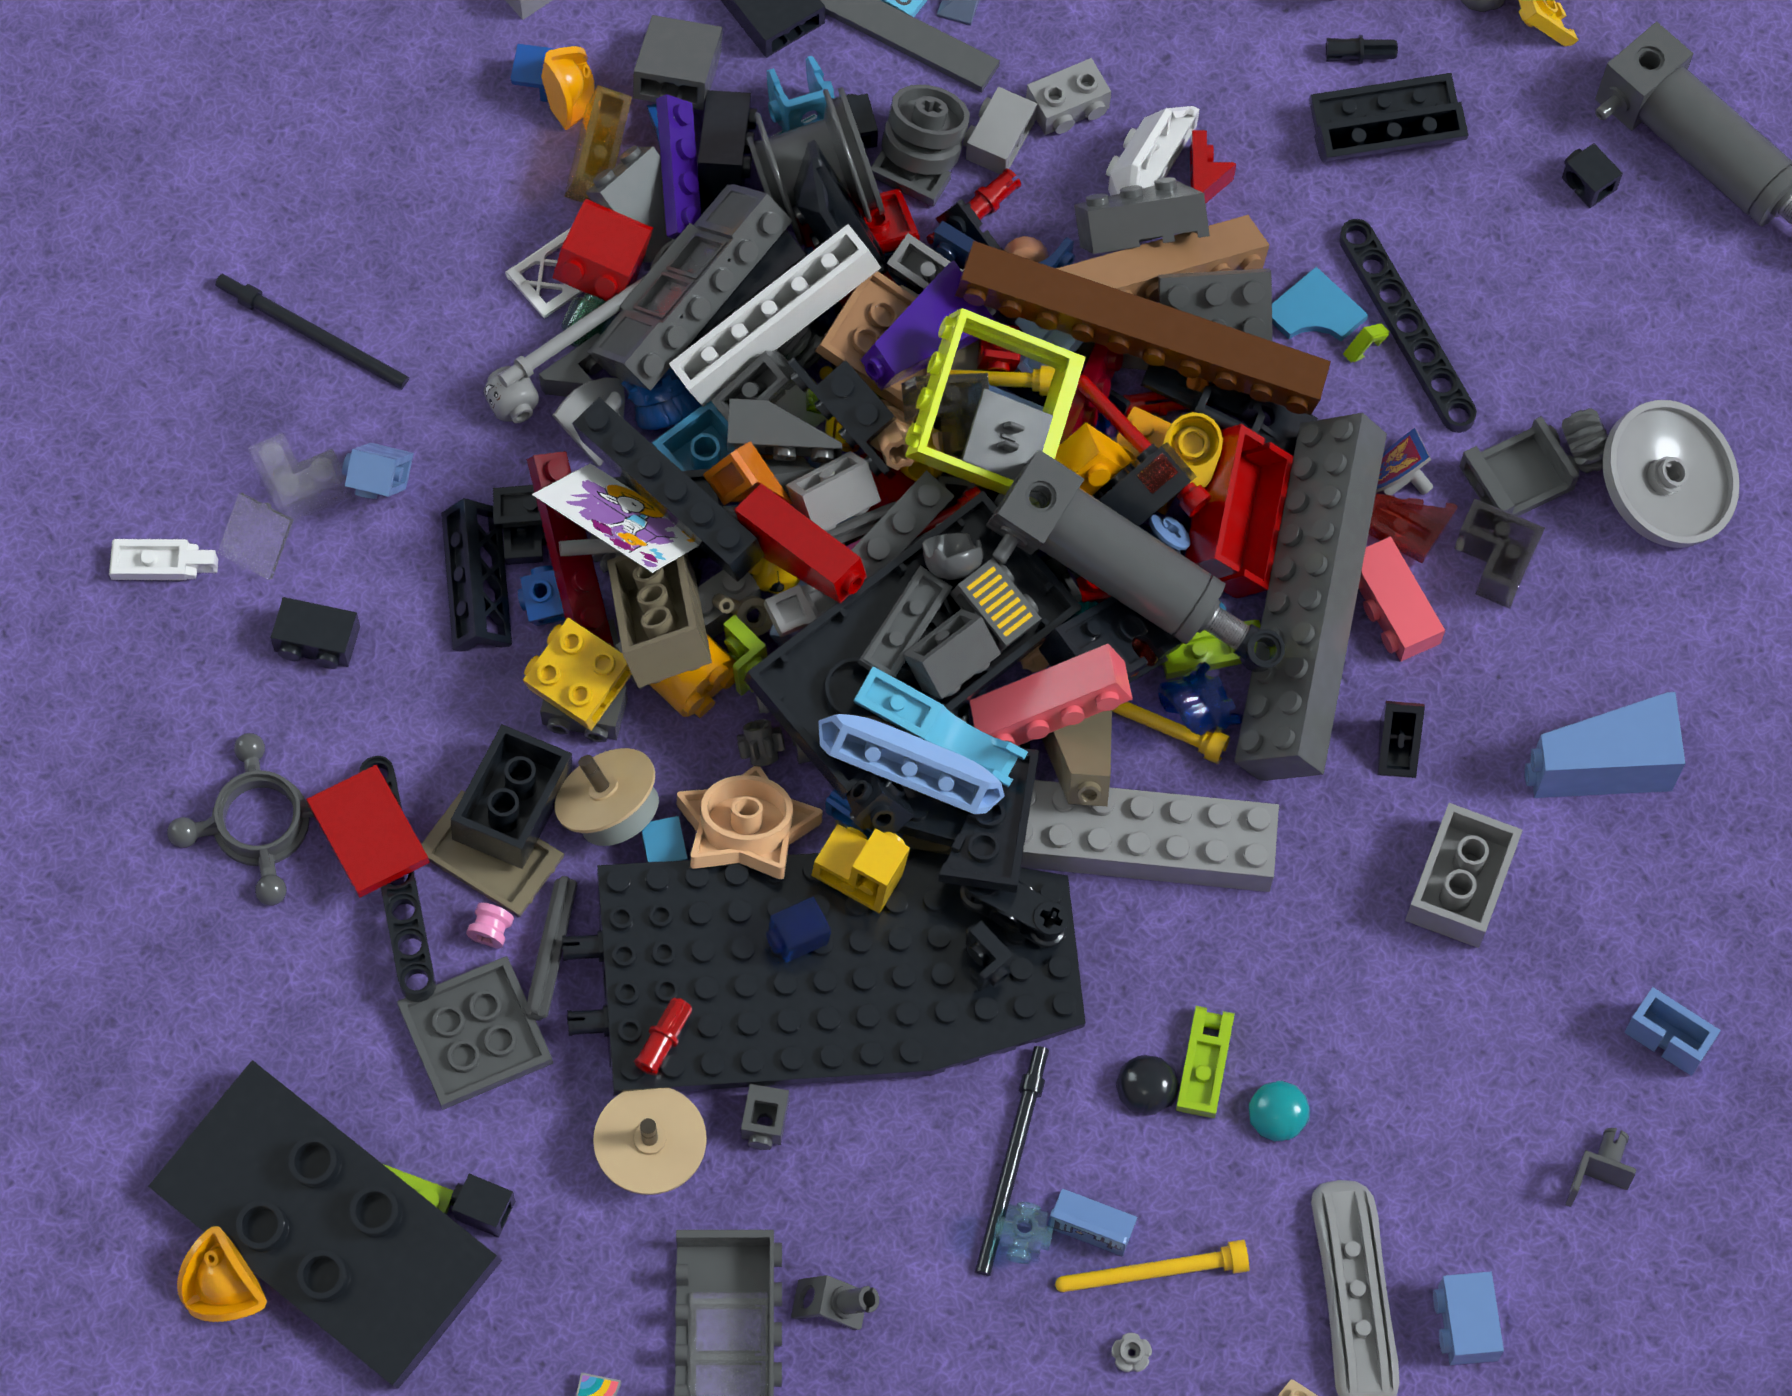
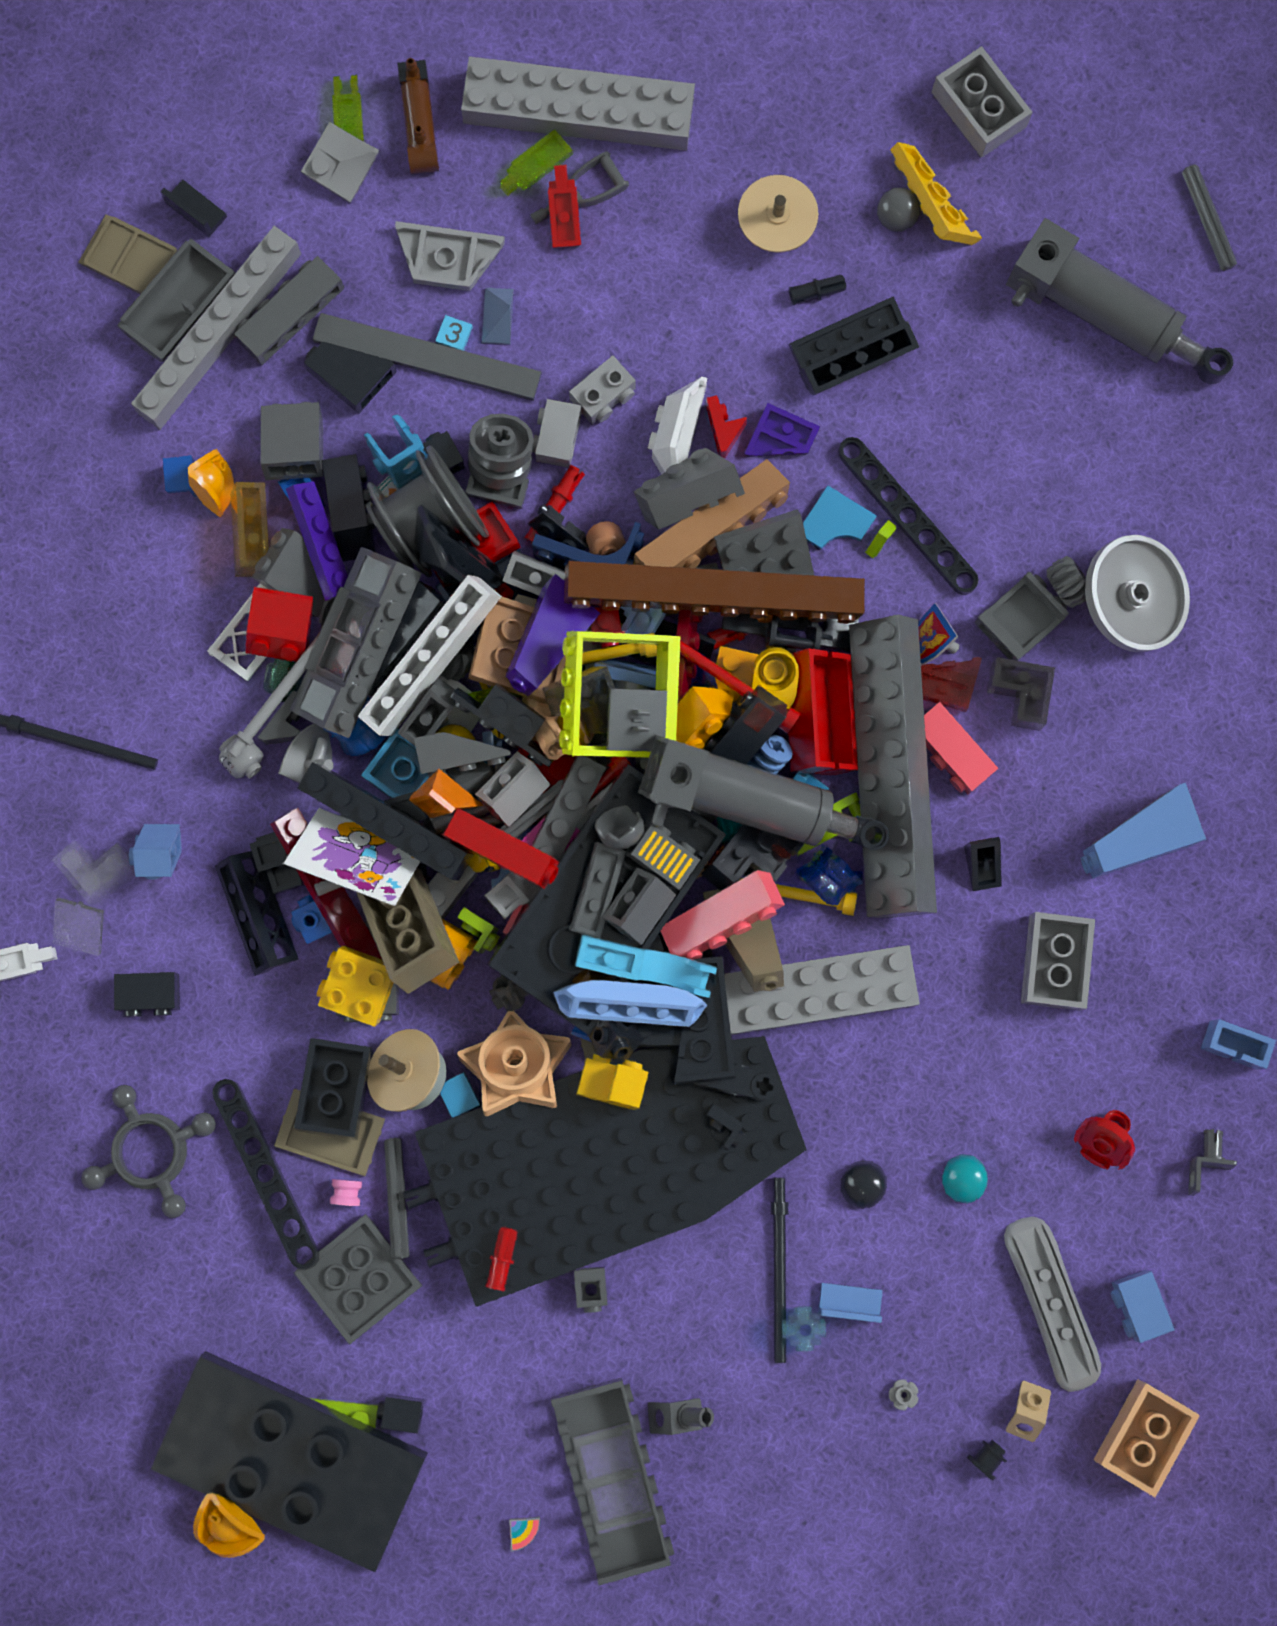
camera: 15 degrees left, 15 degrees up
(367, 831) = (233, 1146): red tile -> none
(650, 1140) = (512, 1336): tan piece -> none
(739, 608) = (455, 897): dark tan plate -> none
(798, 930) = (578, 1147): clear blue brick -> none
(1204, 1063) = (902, 1156): lime plate -> none
(1230, 1257) = (957, 1303): yellow piece -> none
(1274, 197) = (781, 434): none -> dark purple wing
(1471, 1103) = (1105, 1141): none -> red tile
(1591, 174) = (1018, 353): black brick -> none

